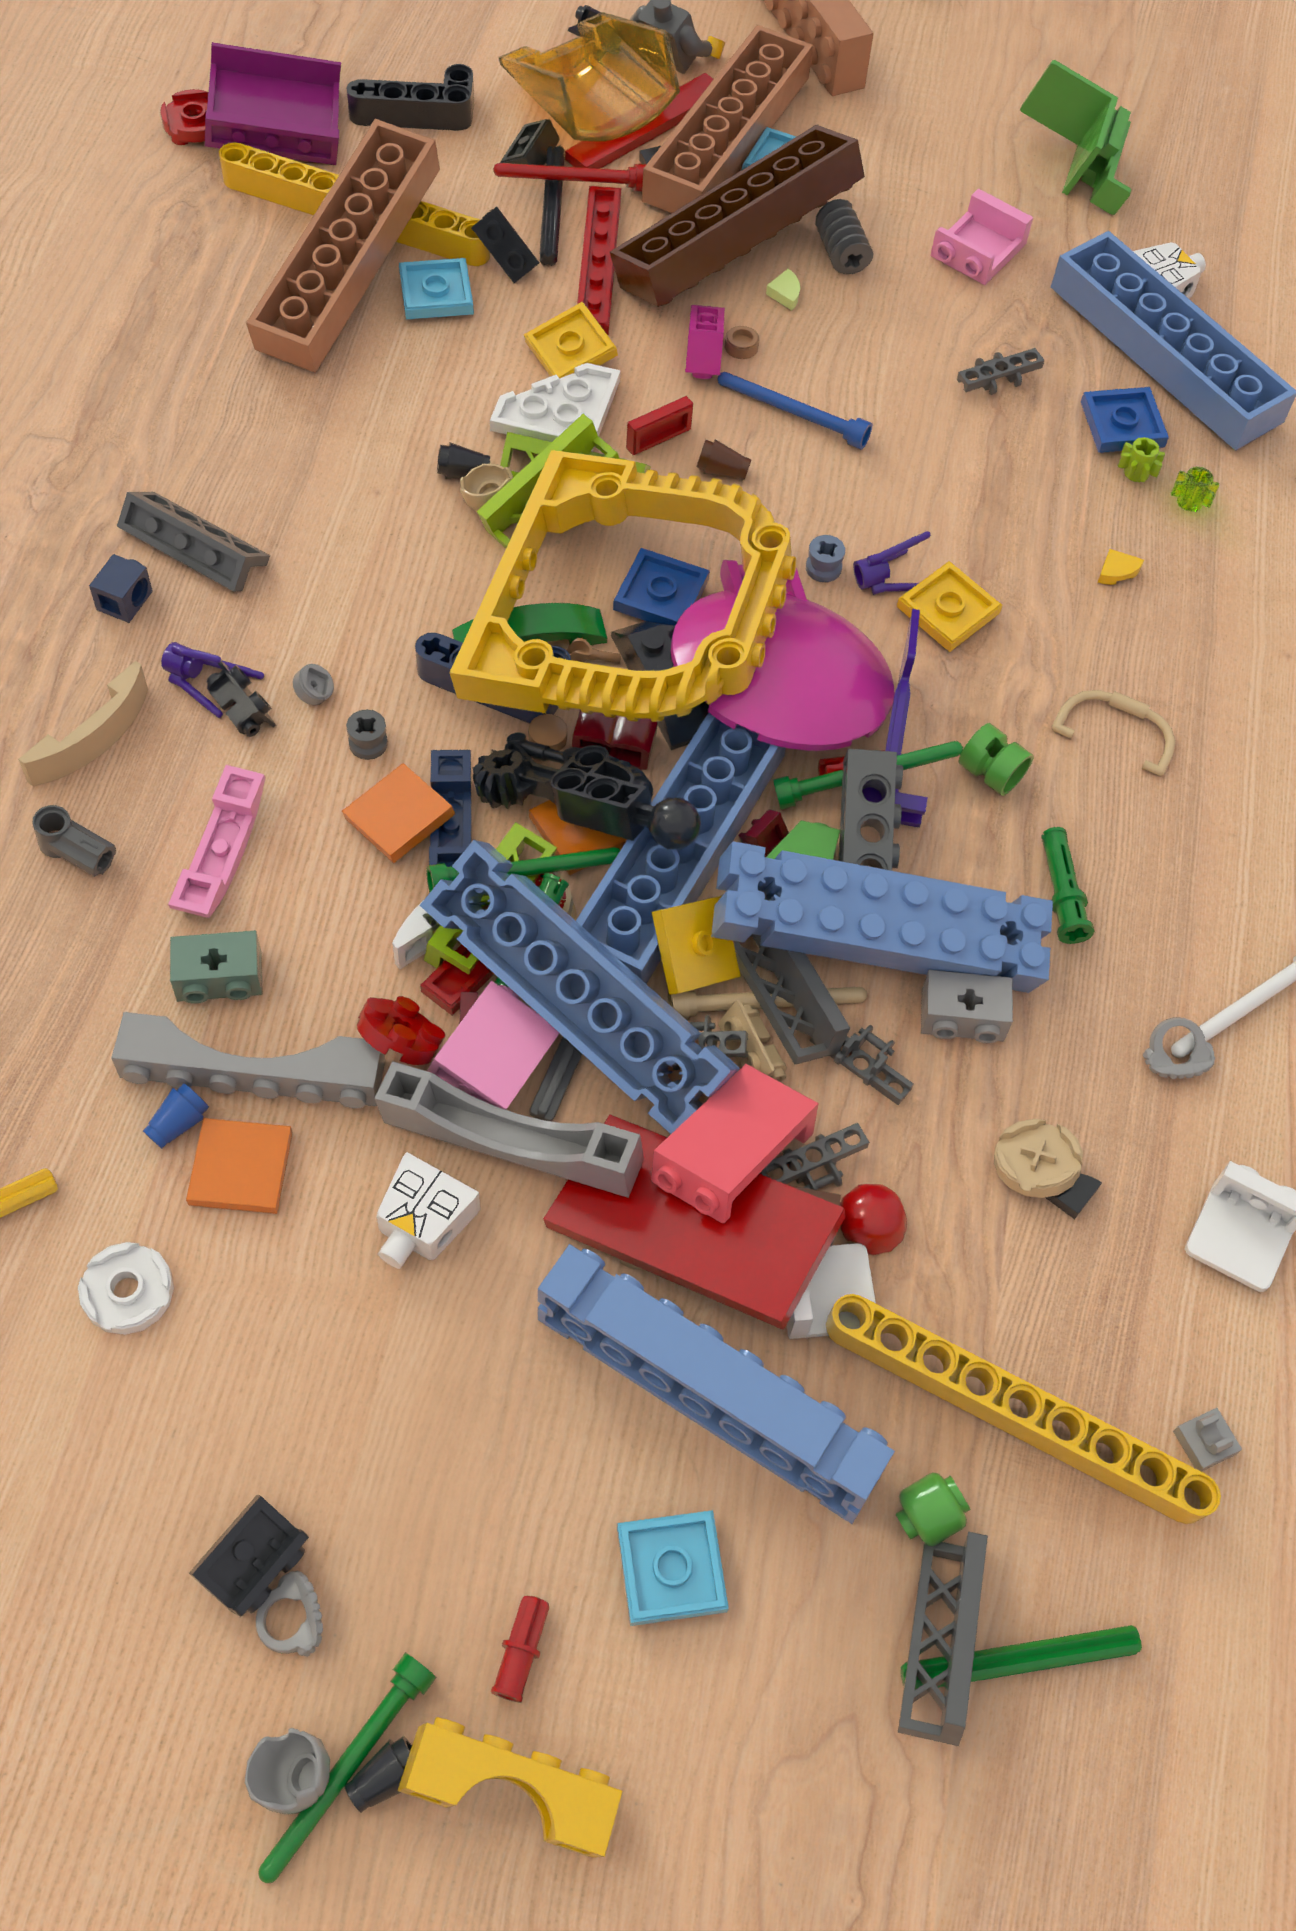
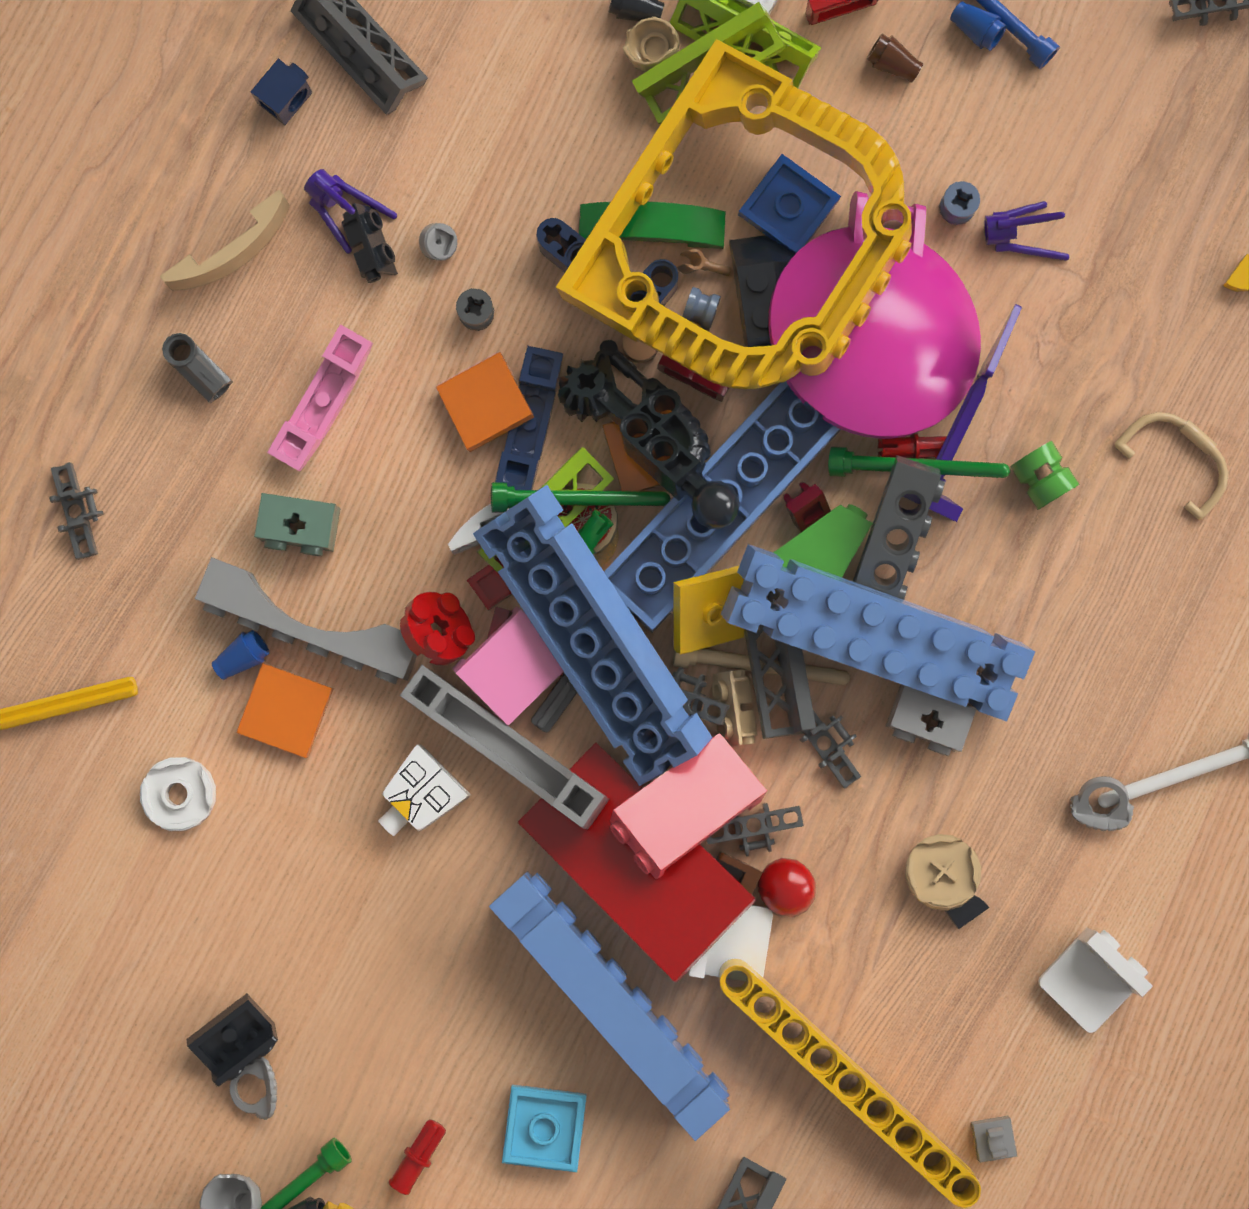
camera: 25 degrees right, 25 degrees up
(793, 423) = (979, 25): none -> blue cone
(932, 1509) = (755, 1139): bright green head -> none
(950, 606) = (1063, 286): yellow plate -> none
(1068, 899) = (1060, 634): green pin -> none

